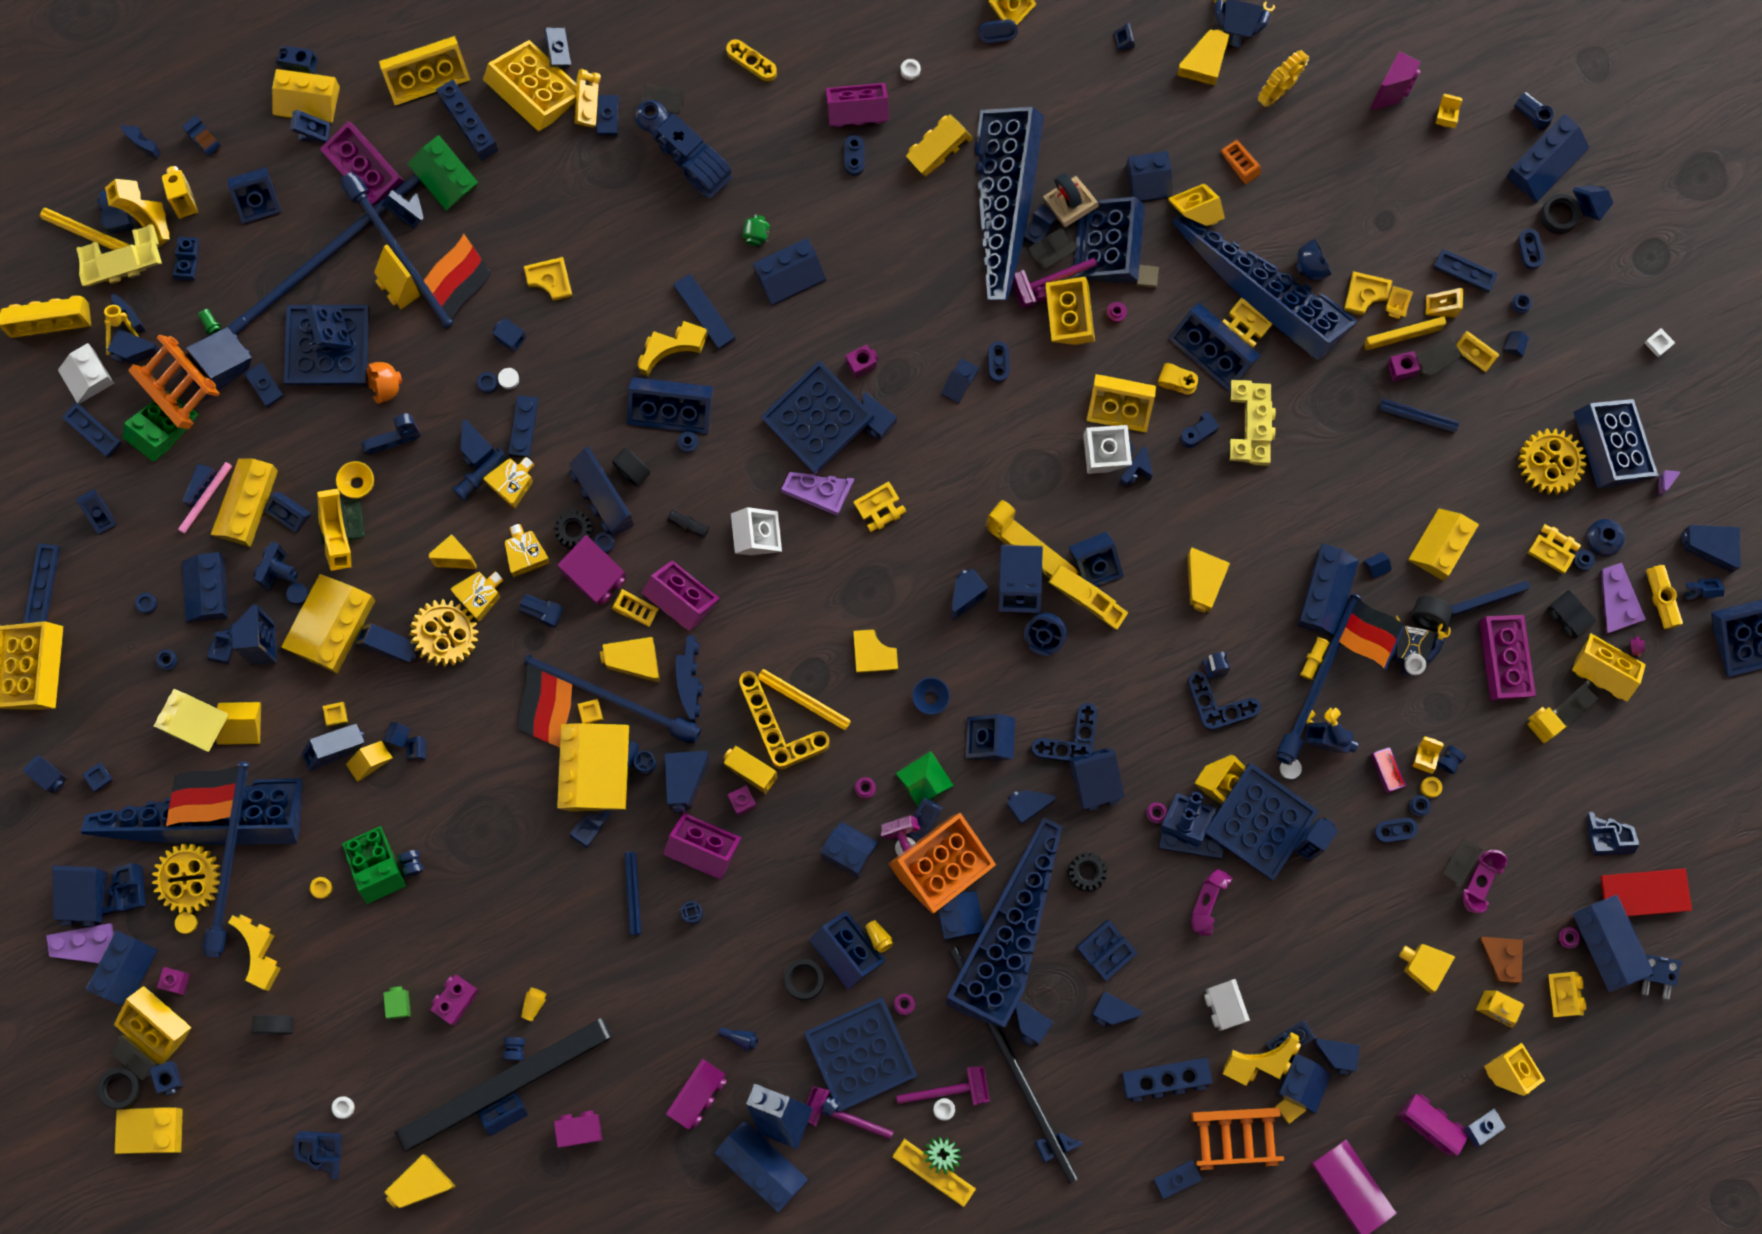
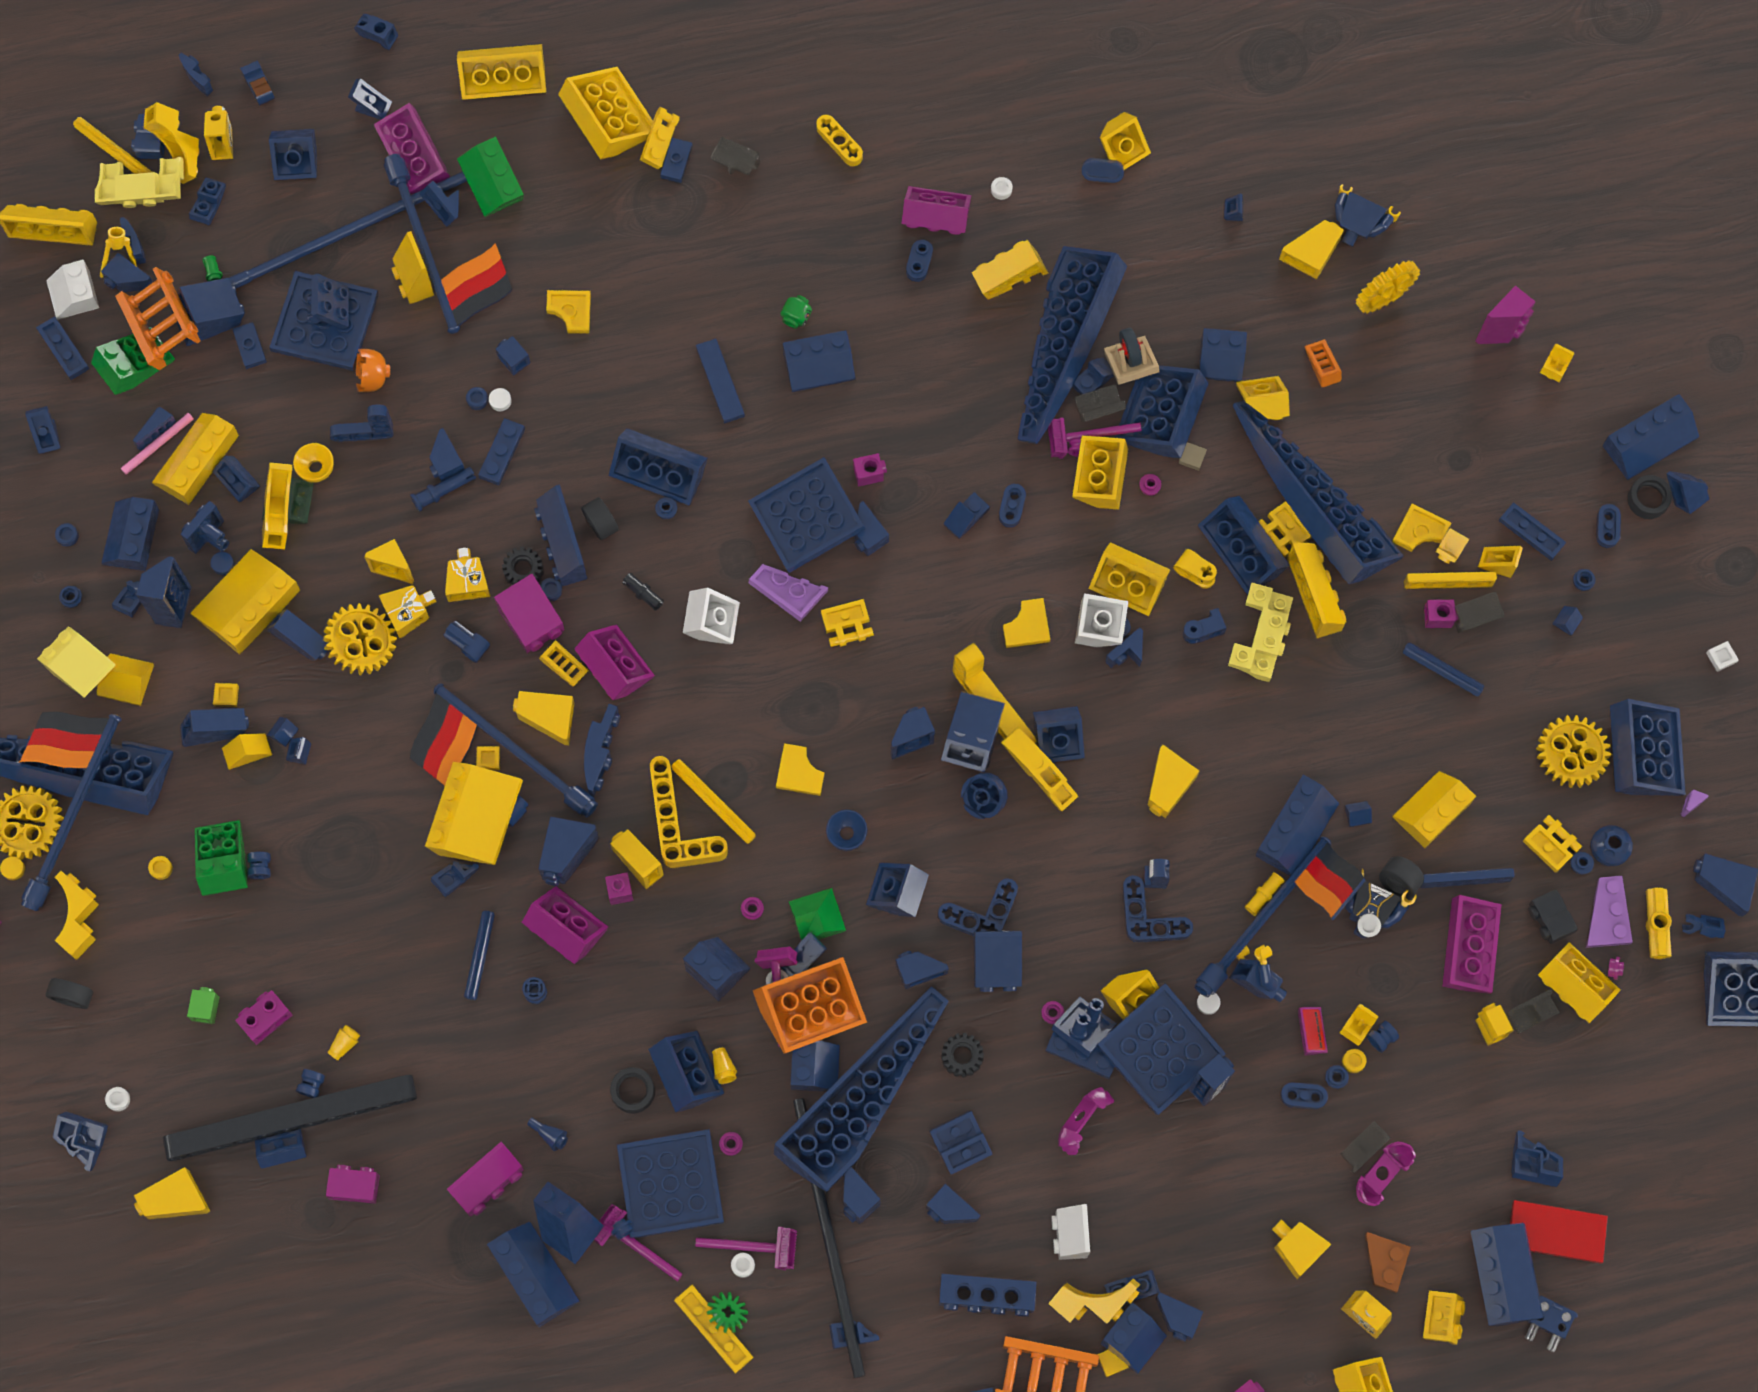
camera: 15 degrees right, 5 degrees down
(306, 93) = (374, 64): yellow slope -> none
(467, 120) = (531, 130): dark blue brick -> none
(511, 480) = (473, 502): yellow torso -> none
(557, 47) = (643, 80): plate -> none
(647, 759) = (529, 818): dark blue wheel -> none
(689, 338) = (663, 404): yellow arch -> none
(698, 161) = (753, 224): dark blue brick -> none
(1043, 468) = (1029, 626): none -> yellow tile
(1289, 372) = (1315, 589): none -> yellow slope
(1312, 261) = (1371, 482): dark blue cylinder -> none
(1477, 351) = (1523, 618): yellow slope -> none
(1533, 109) = (1648, 382): dark blue piece -> none
(1575, 937) = (1468, 1255): magenta plate -> none

